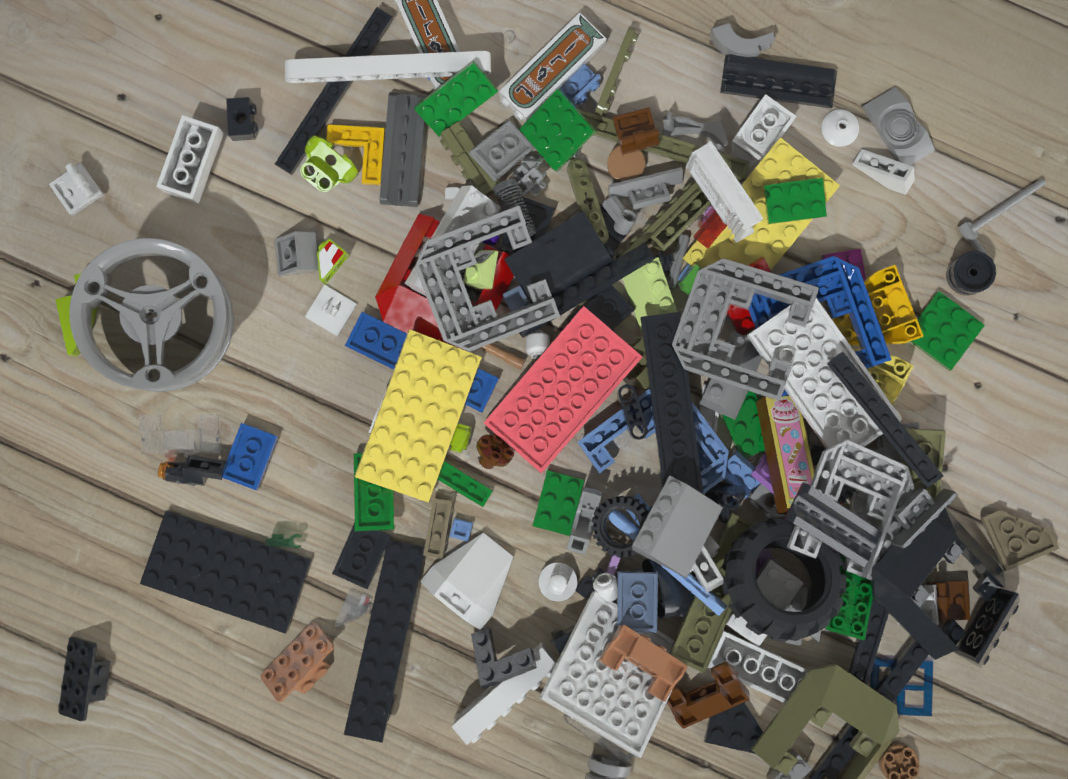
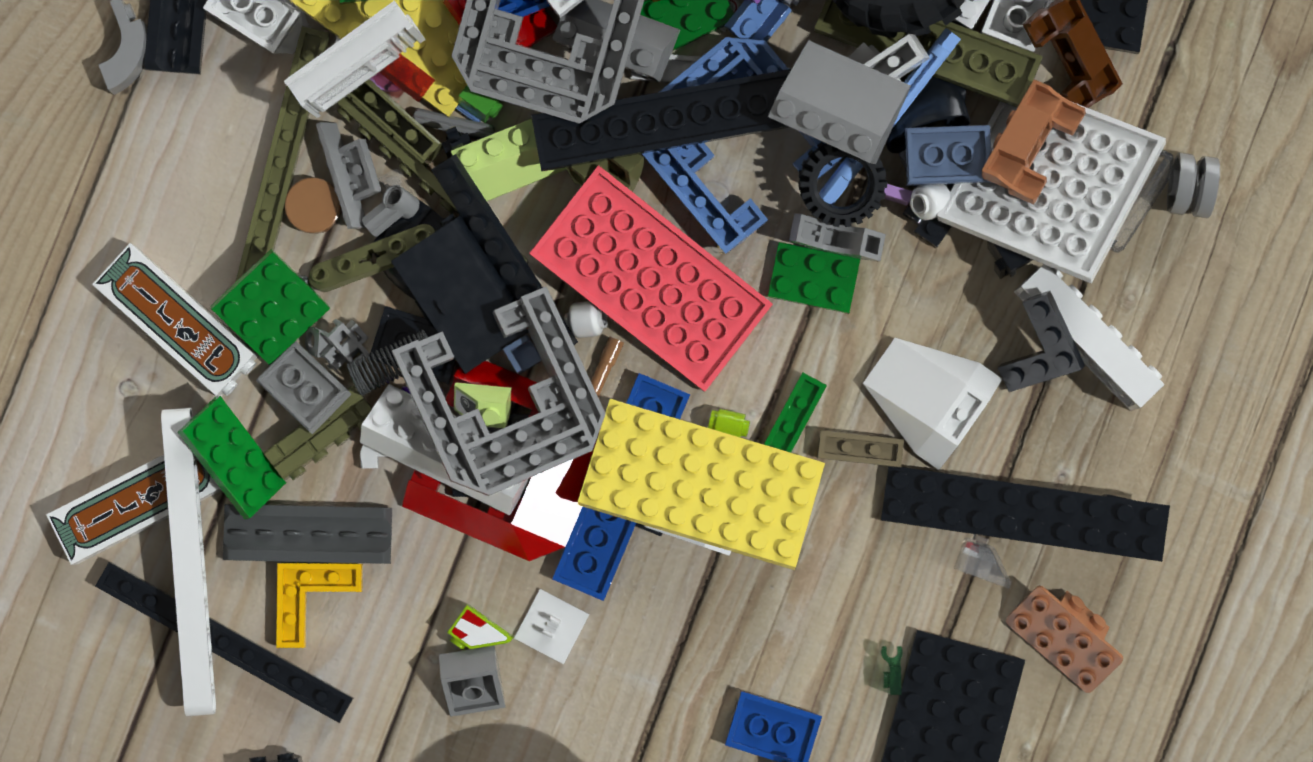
camera: 90 degrees left, 0 degrees up
(317, 151) = (346, 622): lime piece -> none
(361, 556) = (905, 556): black plate -> none
(372, 504) = (829, 544): green plate -> none
(461, 529) = (860, 415): medium blue tile -> none
(493, 451) = (746, 373): reddish brown plate -> none
(557, 581) = (926, 272): white plate -> none
(581, 85) = (199, 279): medium blue bracket -> none
(608, 307) = (526, 221): black plate -> none
(610, 87) = (200, 234): olive piece -> none
(625, 409) = (682, 166): black beam -> none
(636, 131) = (266, 192): reddish brown plate -> none
(682, 125) = (258, 81): light grey animal -> none
(725, 498) = (792, 39): black beam -> none

